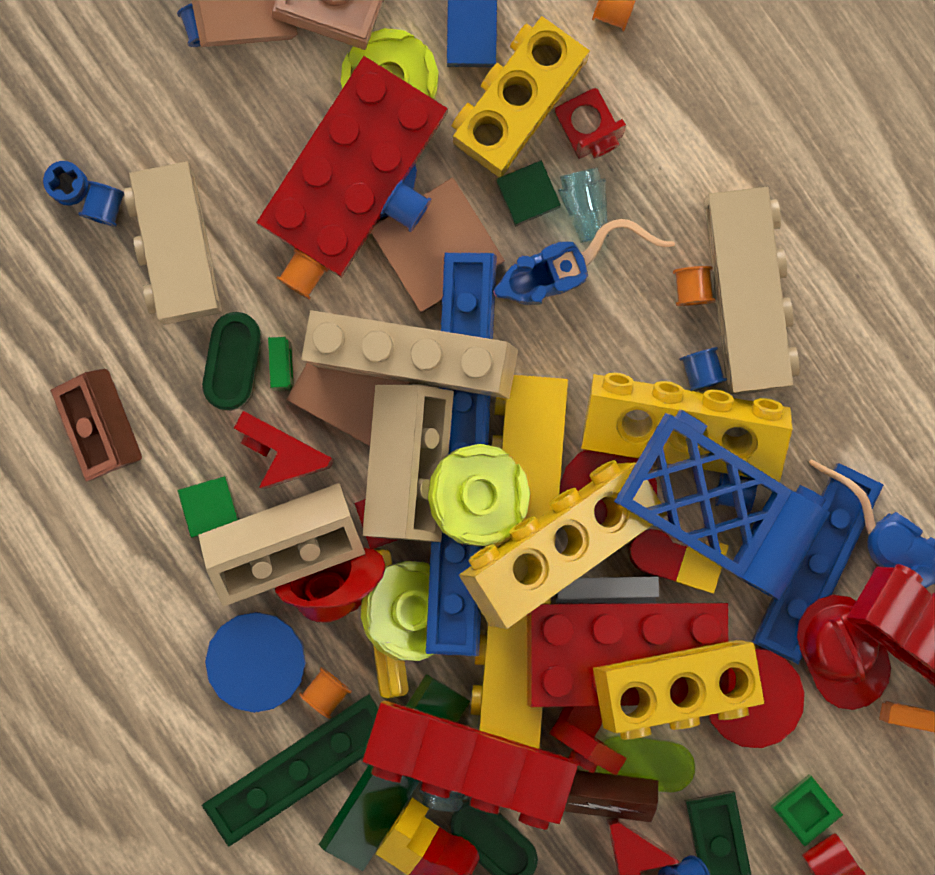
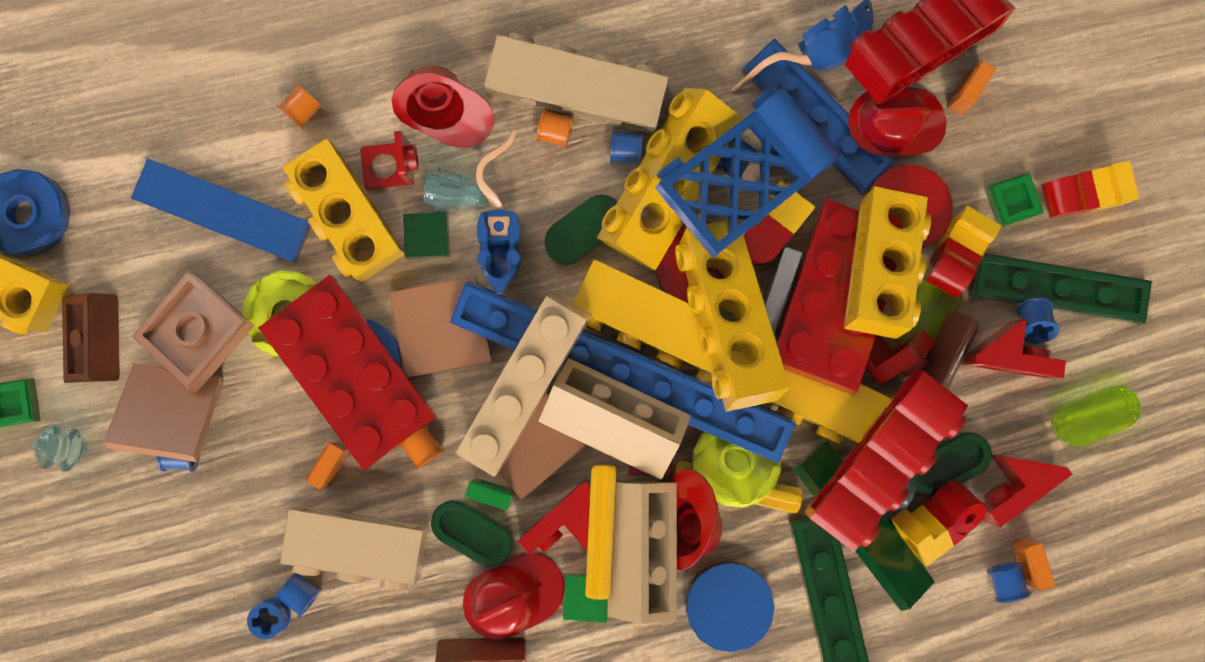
camera: 75 degrees left, 0 degrees up
(181, 430) = (513, 596): none -> red piece
(247, 183) = (328, 465): none -> orange tile
(284, 493) = (600, 531): none -> yellow axle
(325, 693) = (777, 558): orange axle -> none
(406, 206) = (397, 339): blue axle -> none
(478, 495) = (664, 369): neon yellow tile -> none
(593, 351) = (577, 232): none -> dark green tile
(670, 158) = (442, 107): none -> red piece
(725, 768) = (960, 251): none -> leg

